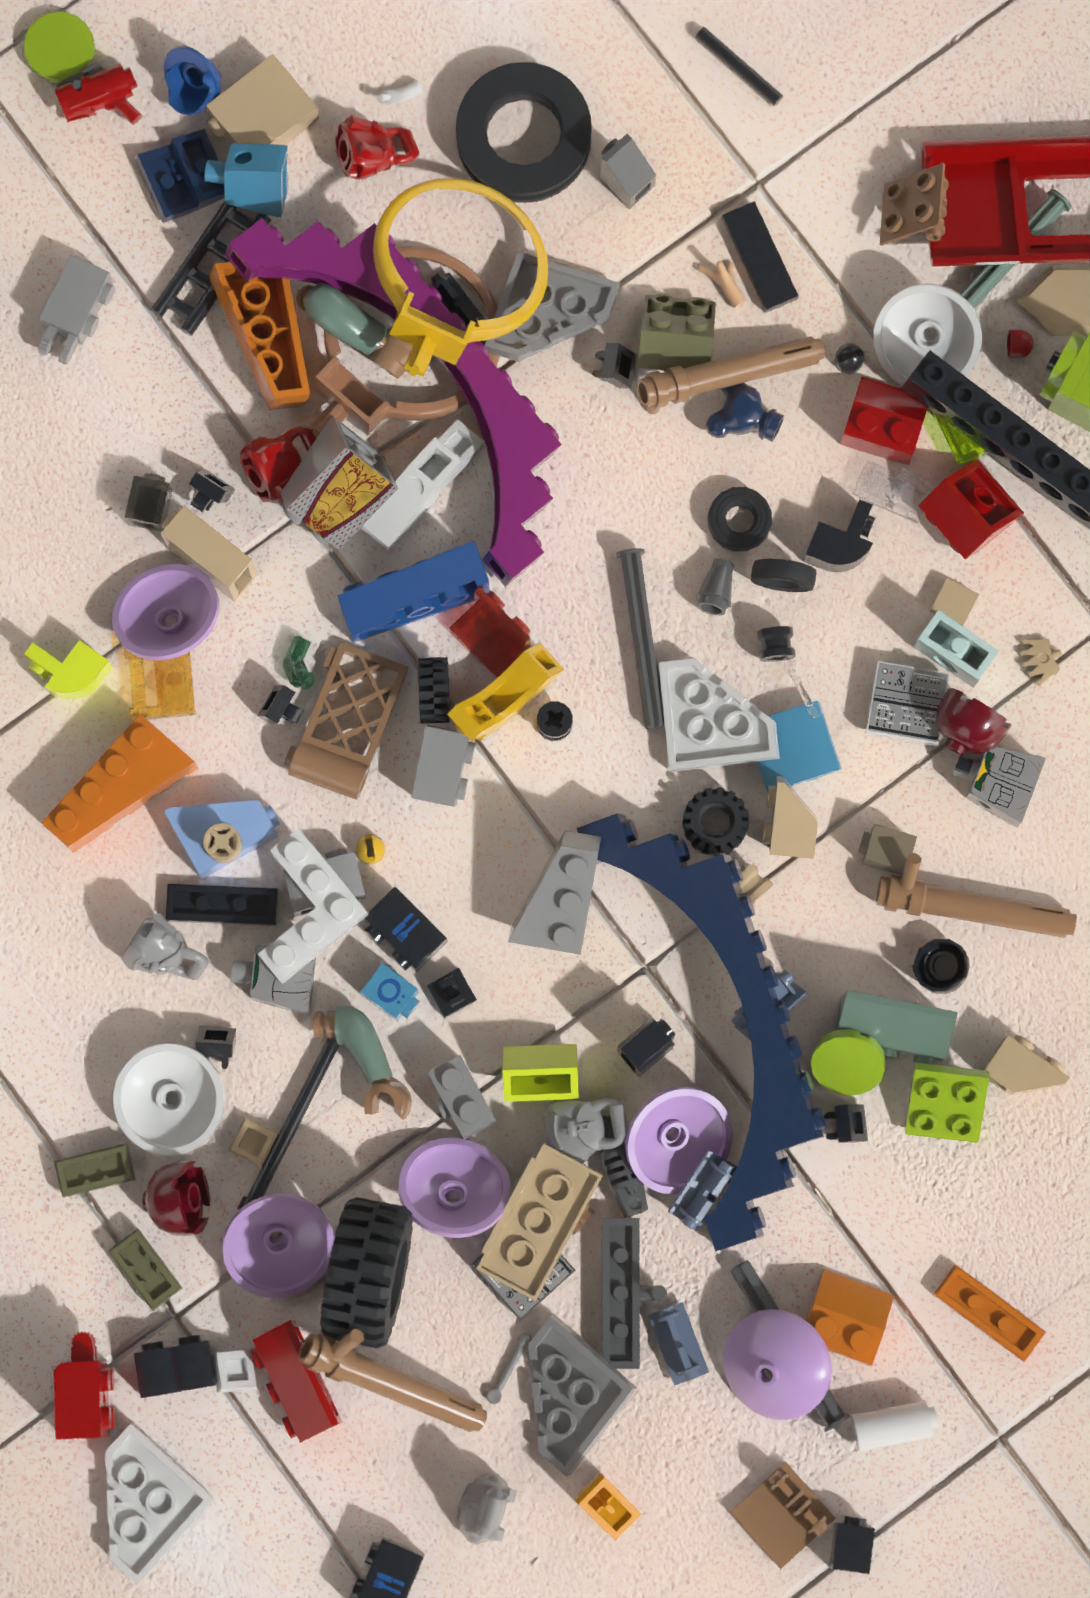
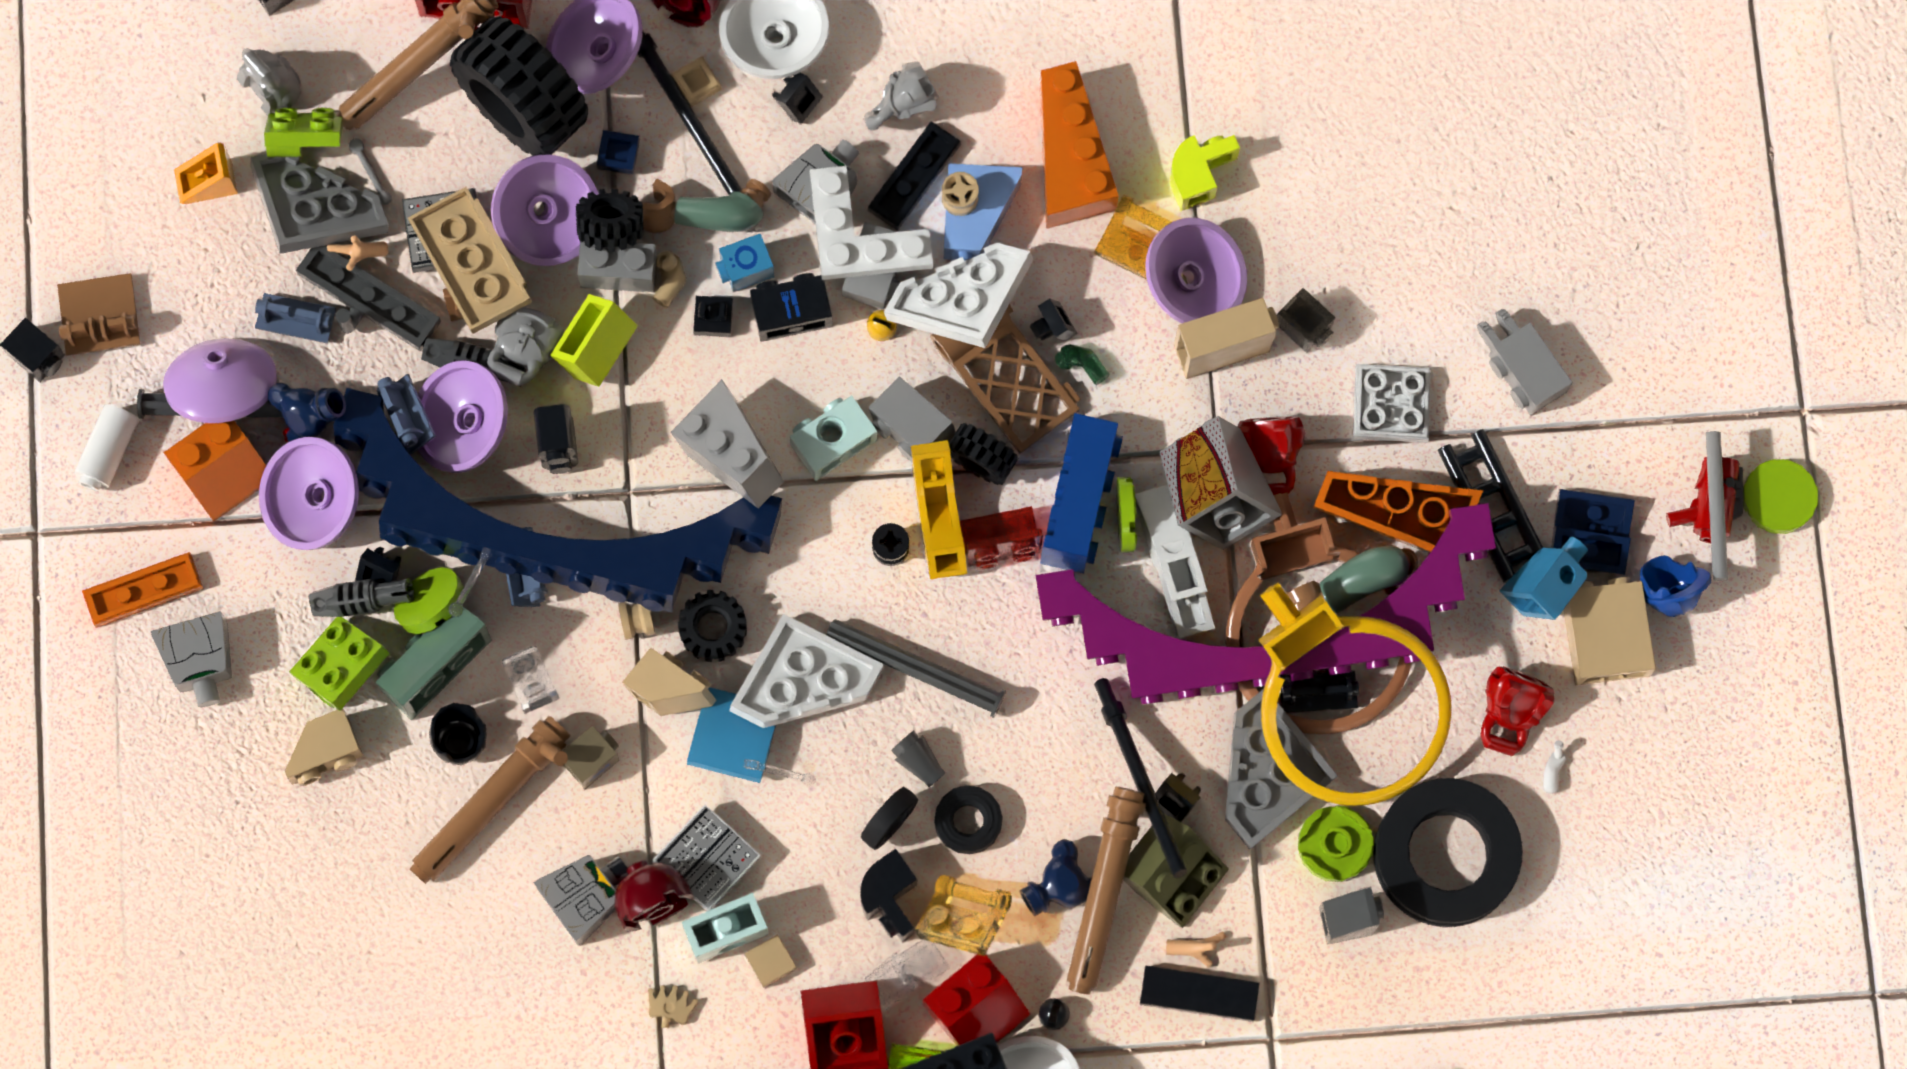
camera: 120 degrees right, 5 degrees down
(105, 81) = (1716, 506): none -> light grey bar
(174, 395) = (1391, 403): none -> white tile
(210, 490) = (1285, 379): black tile -> none
(309, 787) = (963, 296): none -> white plate
(360, 1165) = (618, 152): none -> dark blue plate
(411, 542) = (1126, 514): none -> lime tile
(417, 1133) = (609, 220): none -> black tyre
(440, 1047) = (672, 276): none -> tan arm
(479, 808) = (823, 456): none -> light aqua brick
(515, 1443) = (290, 131): none -> lime plate
(571, 224) = (1335, 843): none -> lime tile
(581, 454) = (1115, 716): none -> black bar
(588, 1325) = (359, 250): none -> light nougat bar
(758, 1270) = (306, 410): none -> dark blue animal
(776, 644) = (834, 777): black wheel -> none
(834, 468) = (961, 926): none -> clear yellow plate
(838, 1234) = (293, 491): none -> lavender dish
(845, 1027) = (456, 609): none -> clear hinge
(857, 938) = (530, 679): none -> clear bracket
(882, 1124) = (359, 597): none -> dark grey hinge
(1017, 1226) = (197, 655): none -> light grey torso

